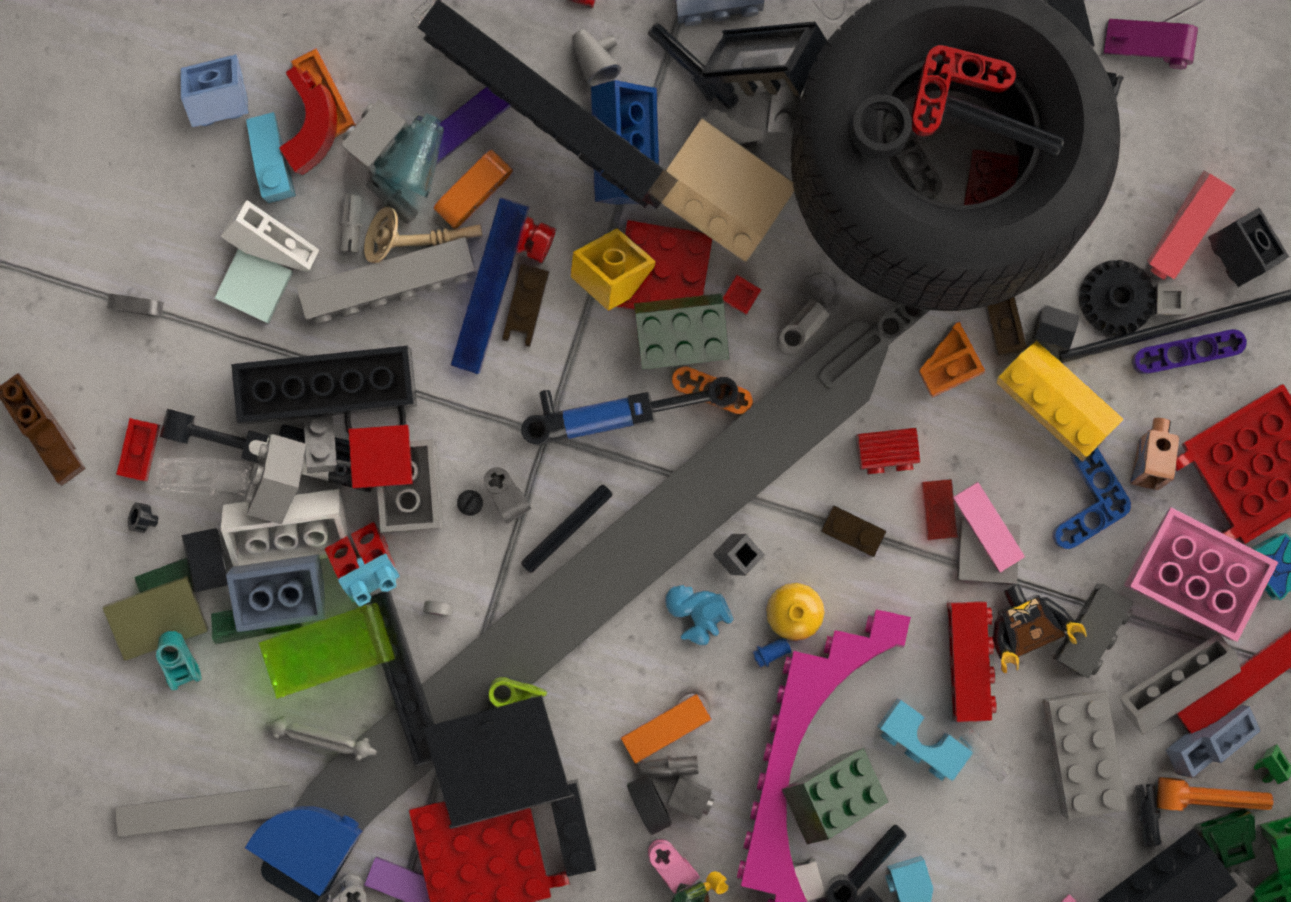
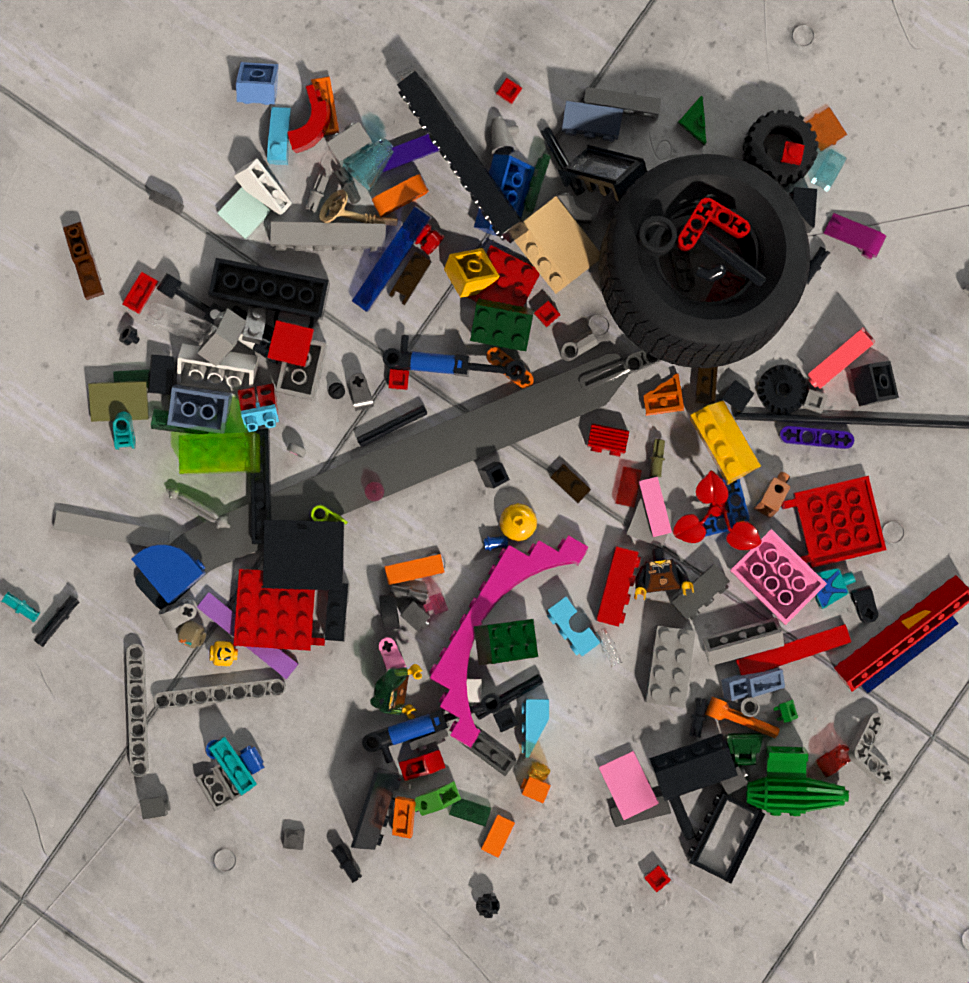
camera: 15 degrees right, 0 degrees up
(555, 458) = (398, 379): none -> red plate
(572, 626) = (379, 491): none -> clear pink tile
(666, 108) = (536, 183): none -> clear green plate
(705, 609) = (462, 503): dark azure animal -> none
(714, 770) = (436, 603): none -> clear pink tile
(968, 454) = (657, 458): none -> olive axle
(981, 158) = (712, 274): none -> black arm
(1073, 482) = (714, 491): none -> red plant
(1228, 780) = (756, 707): none -> light grey piece

